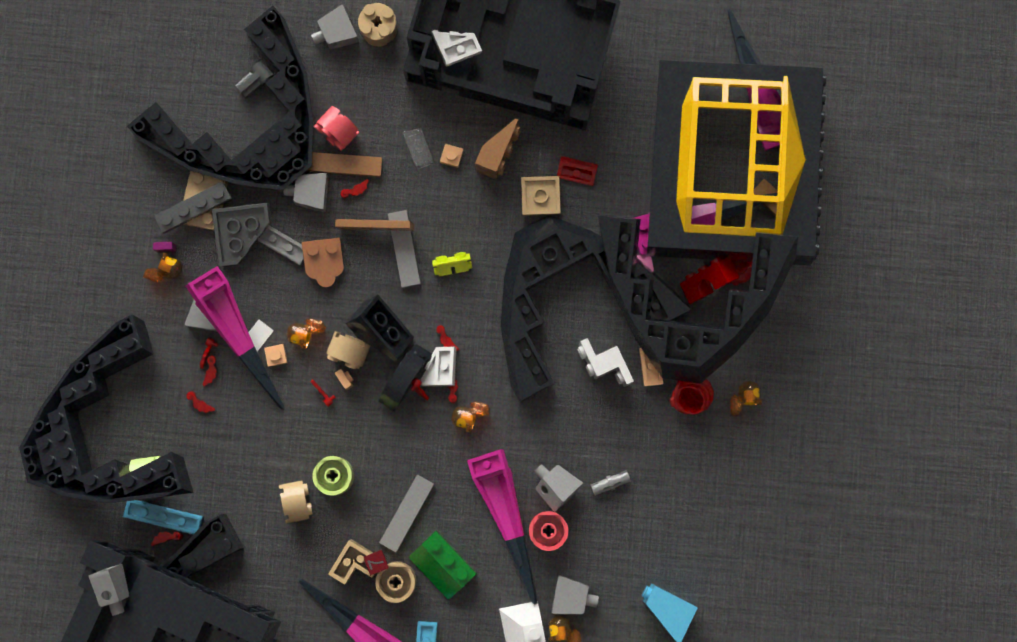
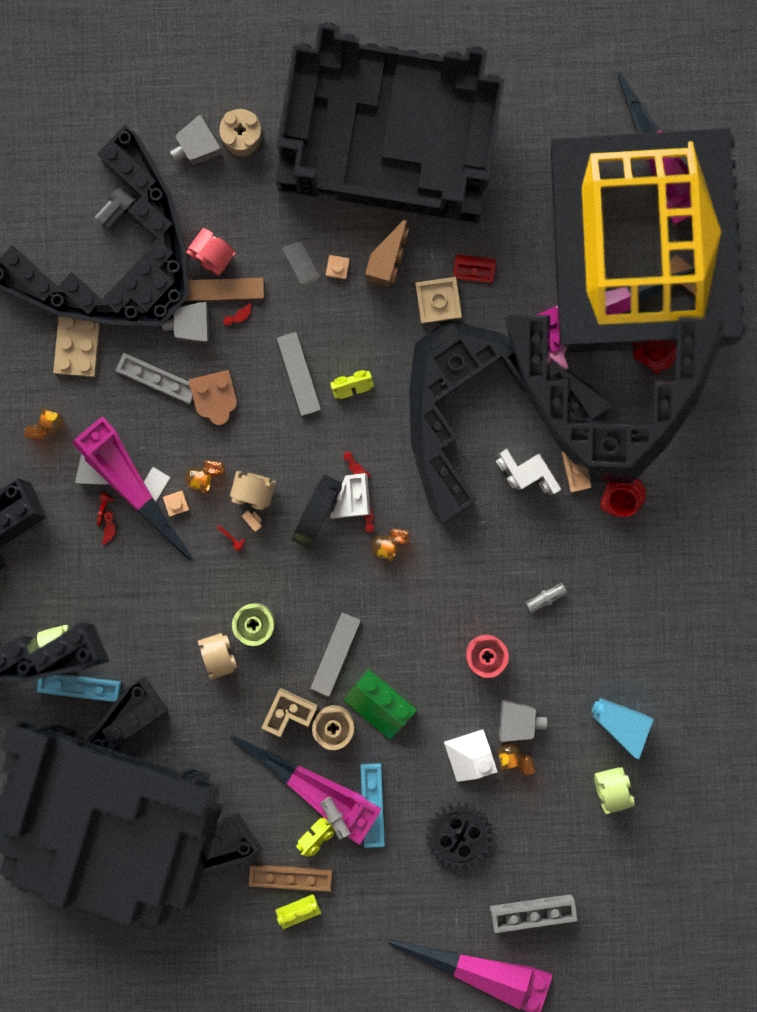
camera: 10 degrees left, 5 degrees up
(110, 588) = (37, 772): light grey torso -> none
(161, 247) = (41, 401): magenta tile -> none
(165, 536) = (84, 707): red piece -> none
(193, 207) = (67, 355): dark grey plate -> none
(199, 404) = (101, 565): red piece -> none
(239, 230) = (119, 374): dark grey plate -> none
(376, 562) = (310, 710): dark red tile -> none
(380, 328) = (284, 462): black slope -> none
(394, 225) = (264, 352): medium nougat tile -> none
(416, 386) = (330, 521): red piece -> none
(456, 46) = (330, 148): white wing -> none
(497, 488) = (428, 618): dark pink plate -> none
(556, 486) = (490, 608): light grey torso -> none
(719, 274) = (639, 365): red arch -> none
(747, 395) = (682, 489): clear orange piece -> none

